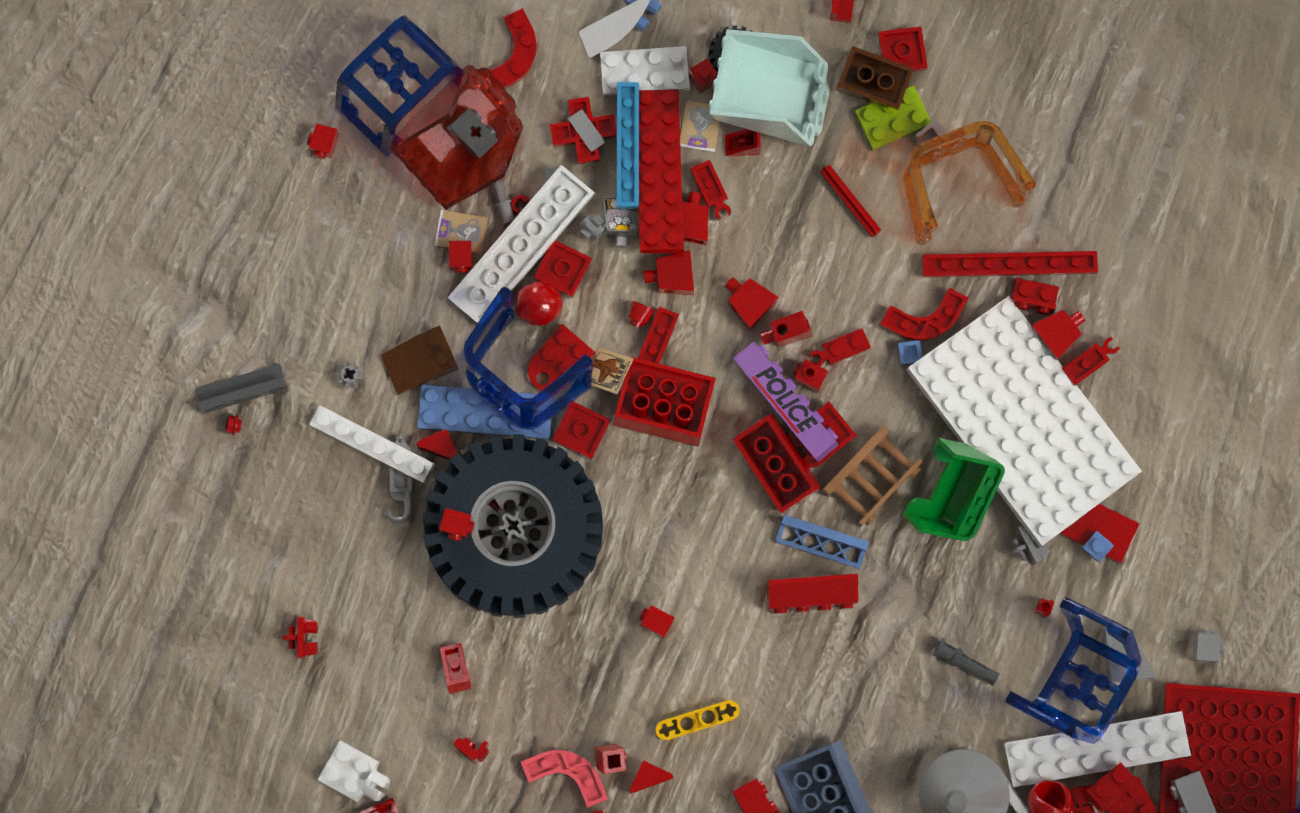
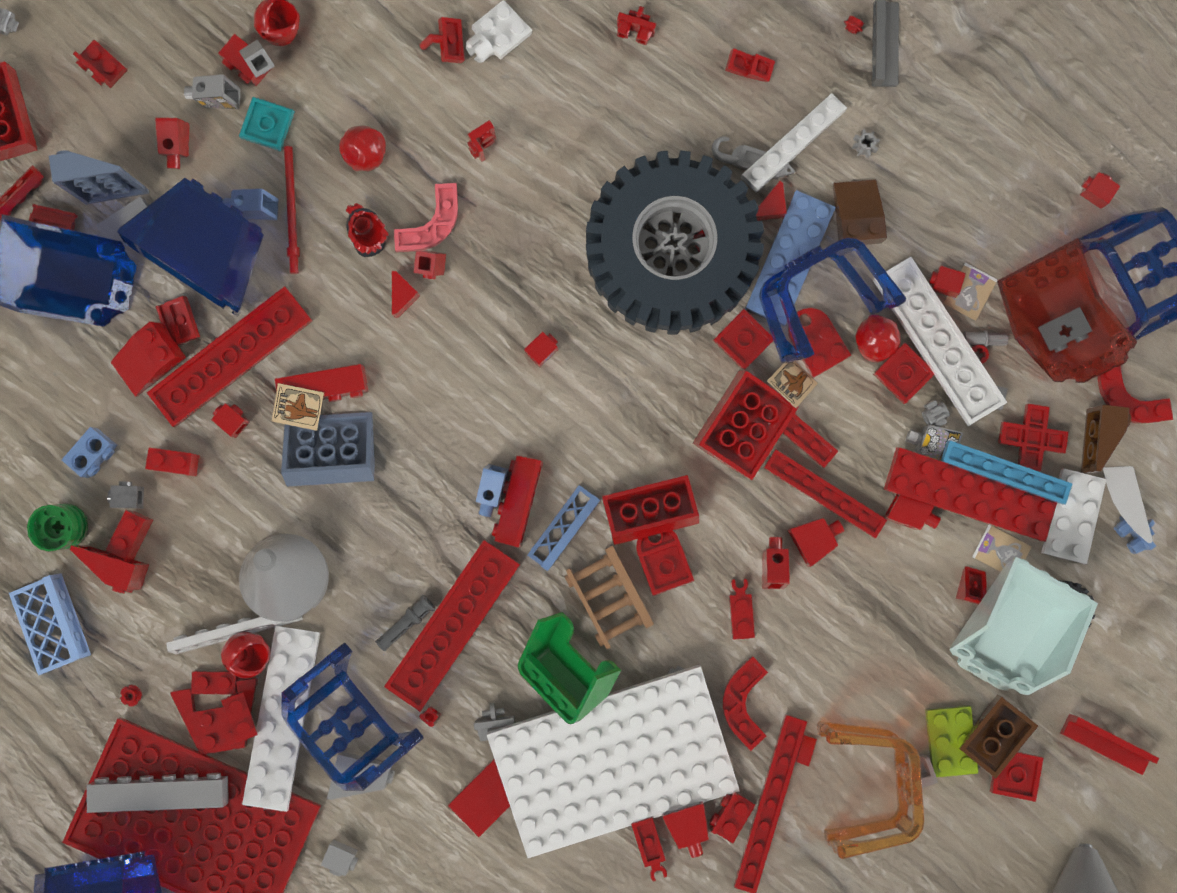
camera: 115 degrees right, 5 degrees up
(306, 513) = (750, 66): none -> red slope
(455, 668) = (556, 151): red plate -> none
(456, 524) = (690, 182): red brick -> none
(560, 68) = (1103, 432): none -> reddish brown slope
(586, 130) = (1032, 439): light grey sticker -> none
(639, 314) = (836, 430): red hat -> none
(672, 274) = (865, 474): red torso -> none
(696, 717) = (435, 356): yellow beam -> none
(703, 75) = (1055, 567): red brick -> none
(703, 306) = (825, 494): none -> red plate
(710, 187) = (938, 540): red plate -> none
(786, 401) = (706, 539): medium lavender brick -> none
(801, 622) = (492, 479): none -> medium blue torso
(809, 375) = (725, 571): red brick -> none
(850, 201) = (882, 670): red axle -> none
(909, 352) = (716, 675): medium blue plate -> none
(949, 247) = (806, 750): none -> red piece
(951, 616) = (452, 625): none -> red plate
(1097, 547) = (469, 788): medium blue plate -> none

